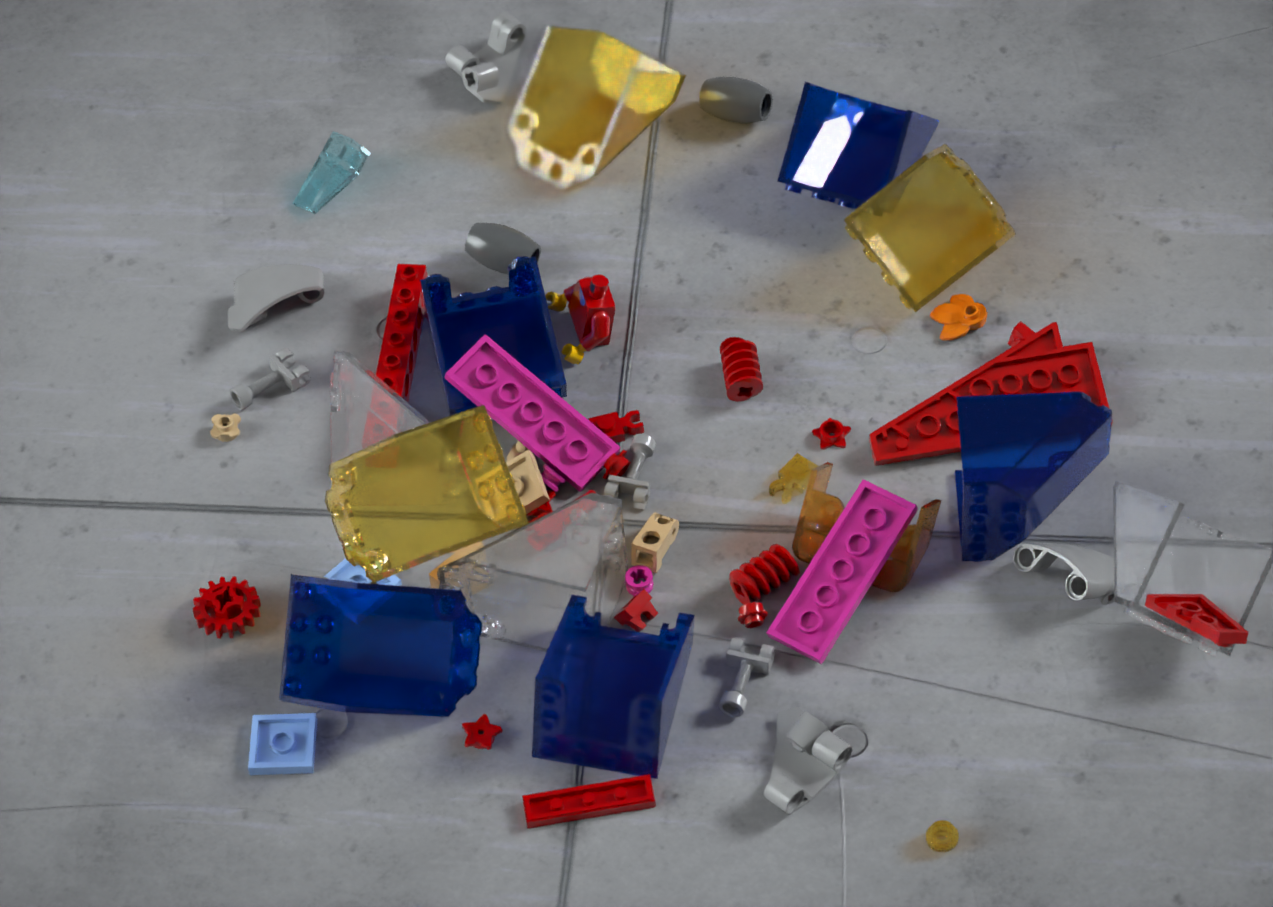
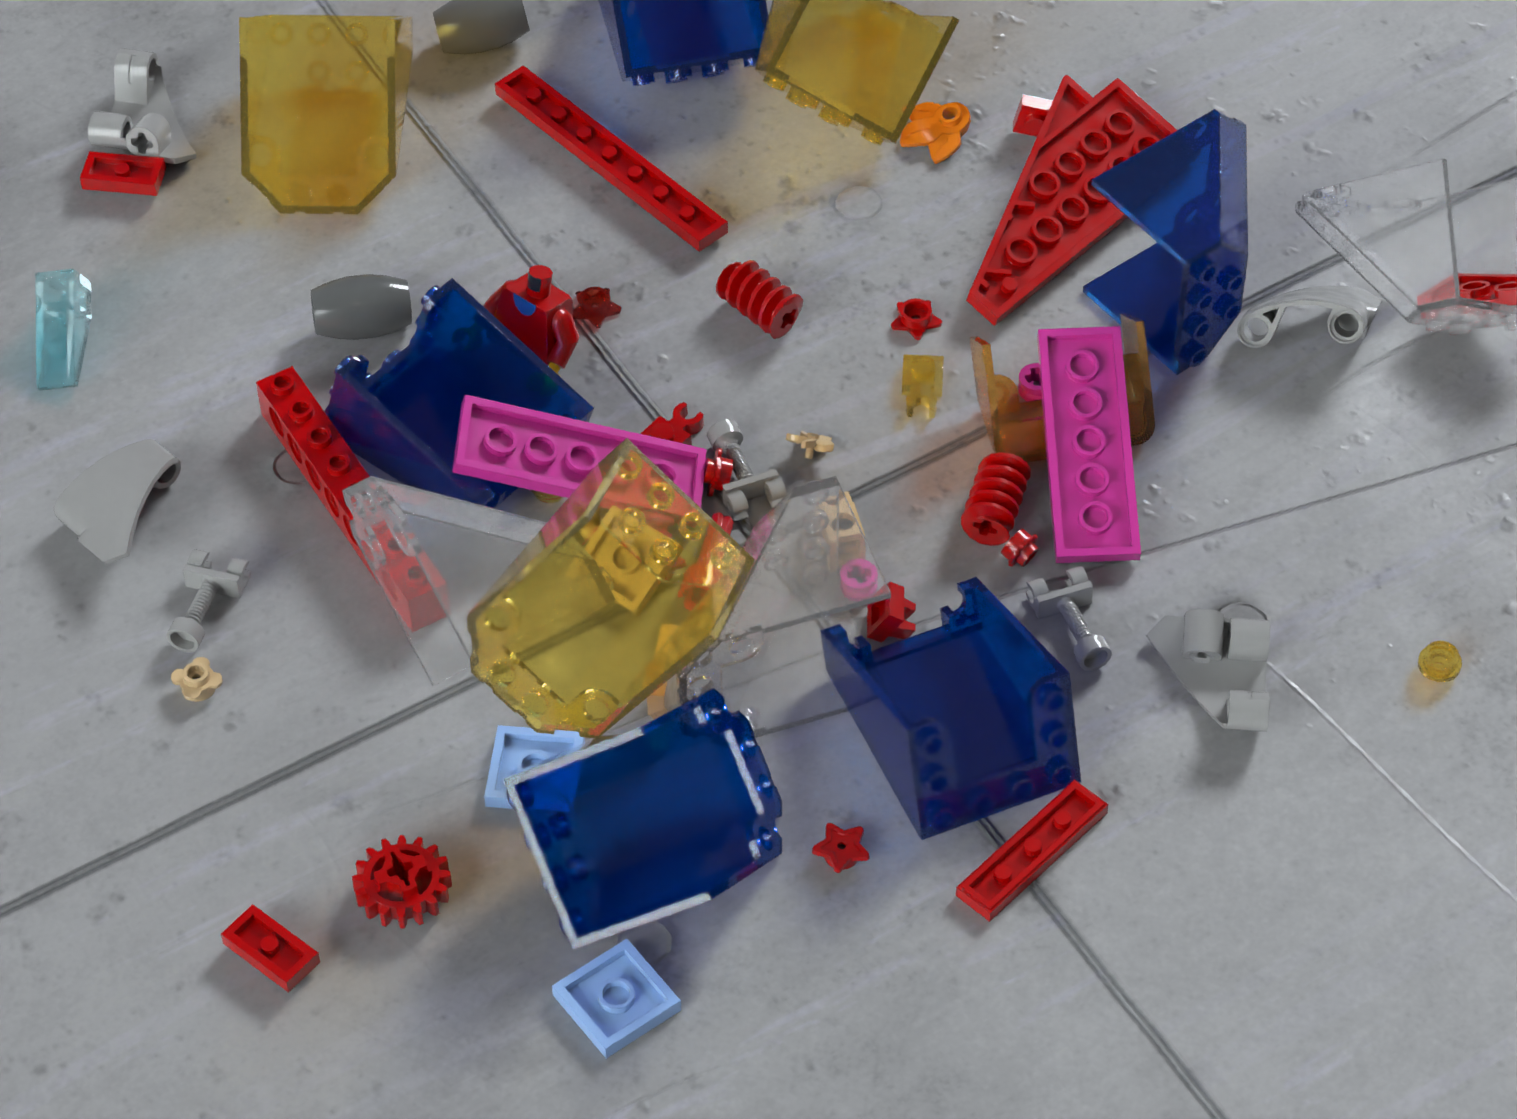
camera: 40 degrees left, 0 degrees up
(129, 603) = (270, 948): none -> red plate
(449, 93) = (123, 173): none -> red plate
(643, 315) = (599, 297): none -> clear red plate
(691, 478) = (811, 442): none -> tan plant
(738, 231) = (612, 158): none -> red plate

